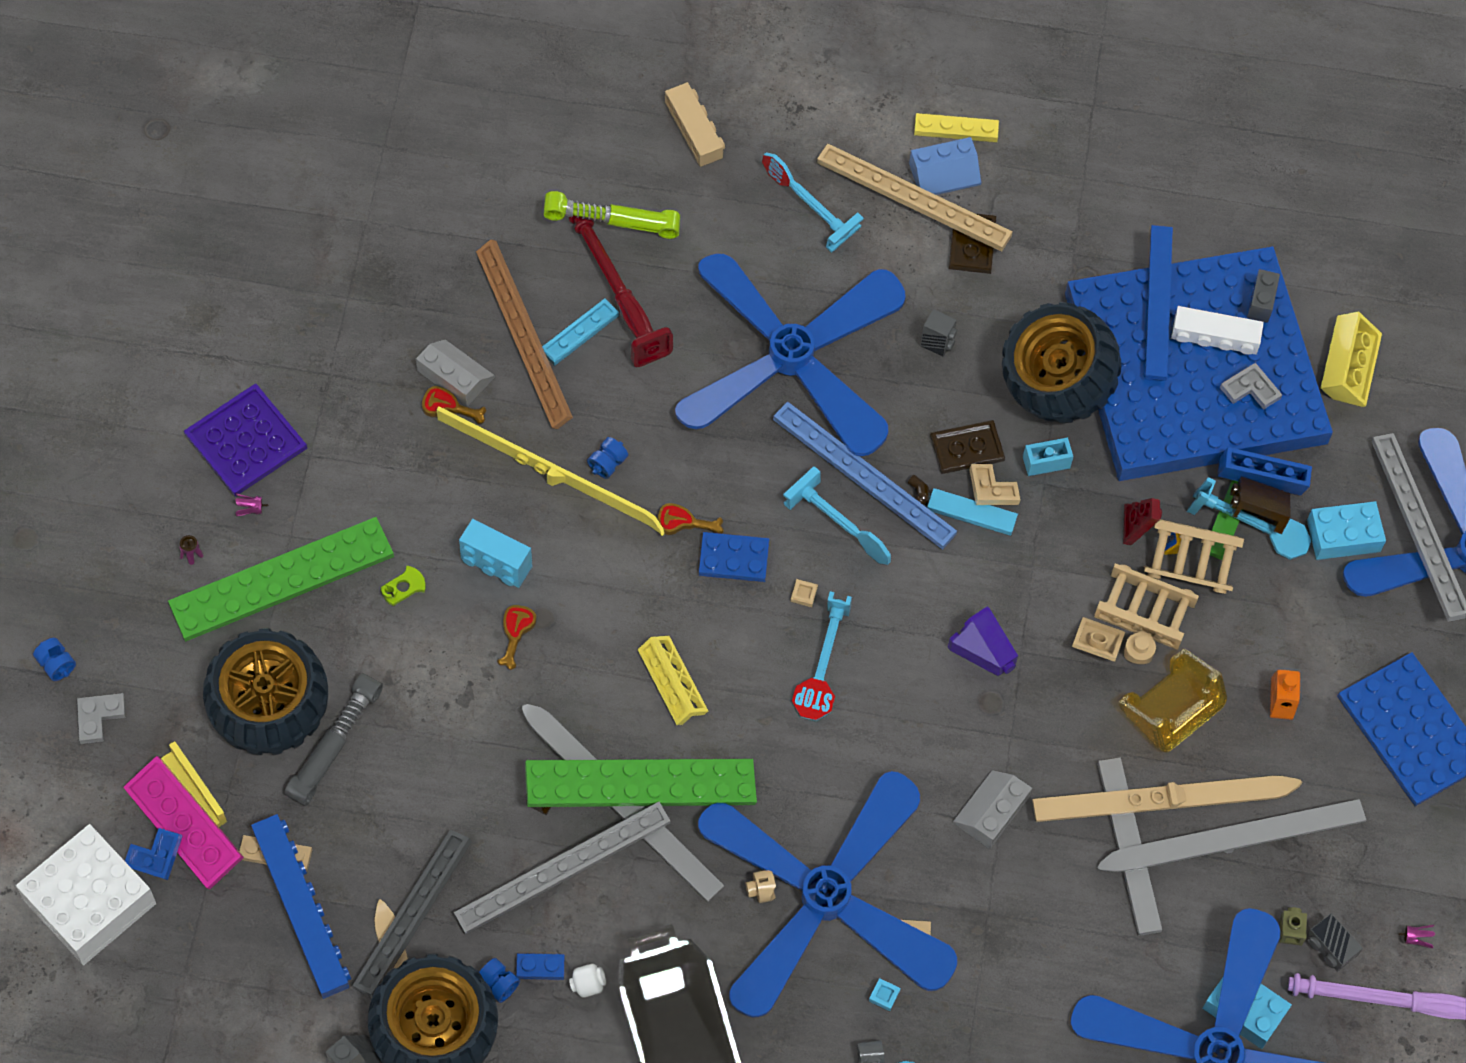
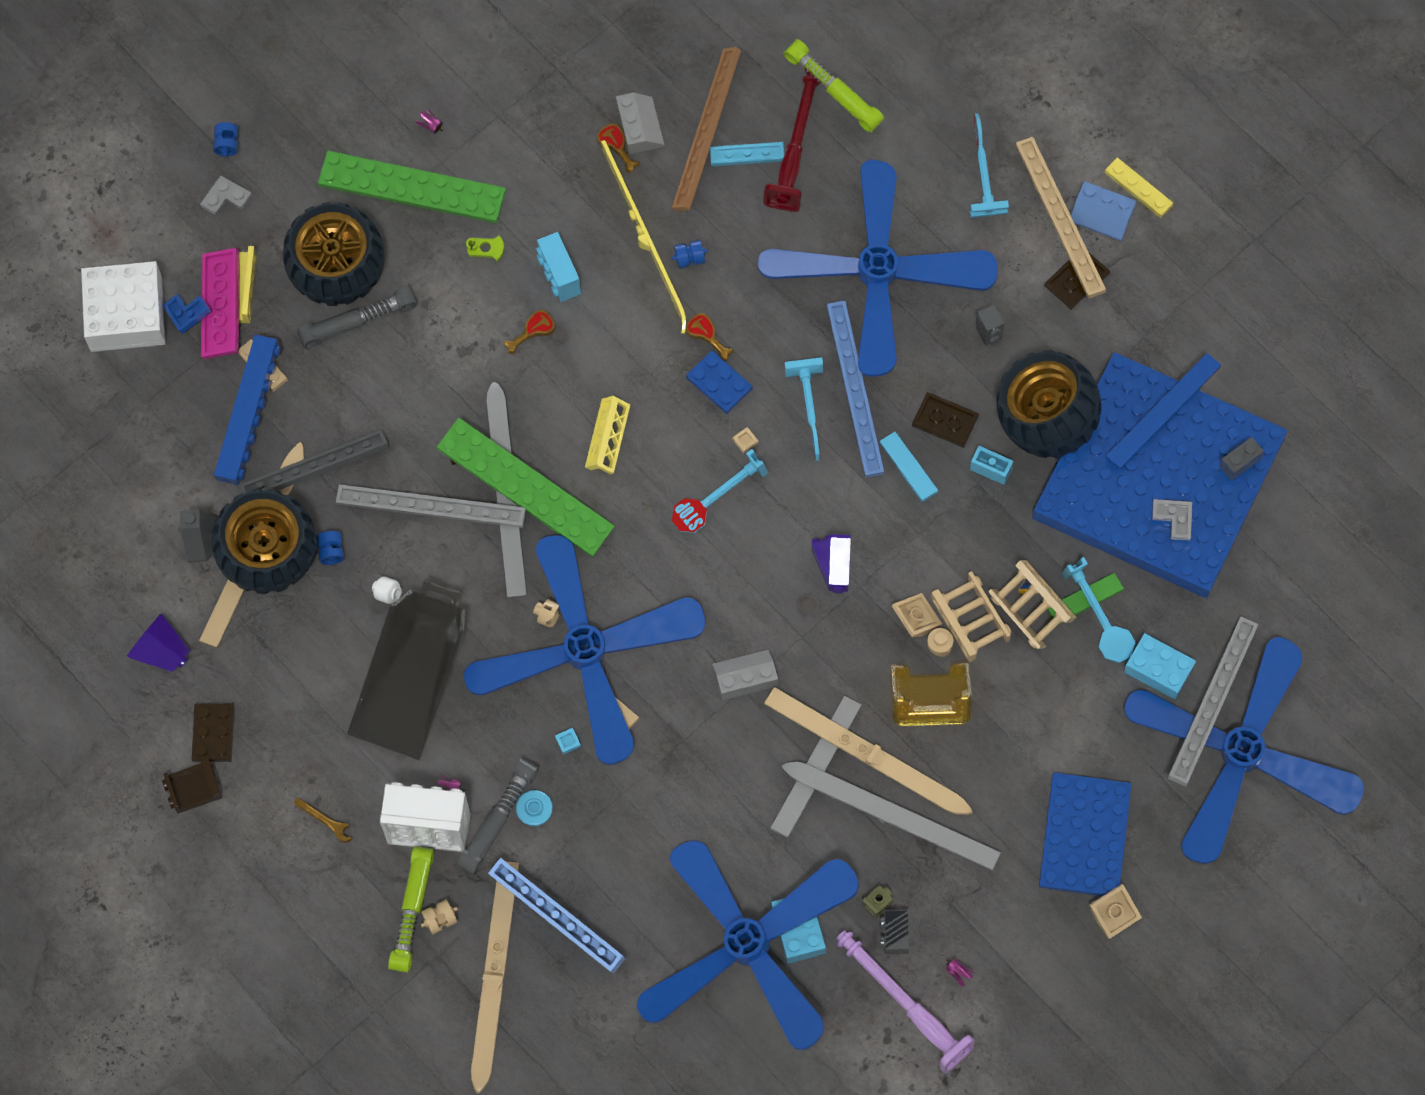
camera: 45 degrees right, 5 degrees up
(189, 545) = (367, 123): piece -> none
(245, 439) = (463, 75): dark purple plate -> none
(540, 966) = (366, 559): blue plate -> none
(694, 124) = (950, 59): tan brick -> none
(922, 489) = (887, 426): dark brown arm -> none
(989, 491) = (931, 460): tan plate -> none
(1140, 519) = (1014, 554): dark red wing -> none
(1217, 330) = (1185, 460): white brick -> none
(1261, 500) = (1112, 602): dark brown panel -> none
(1264, 469) = (1135, 583): blue brick -> none
(1284, 688) = (1013, 744): orange torso -> none
(1351, 359) = (1276, 551): light yellow slope -> none

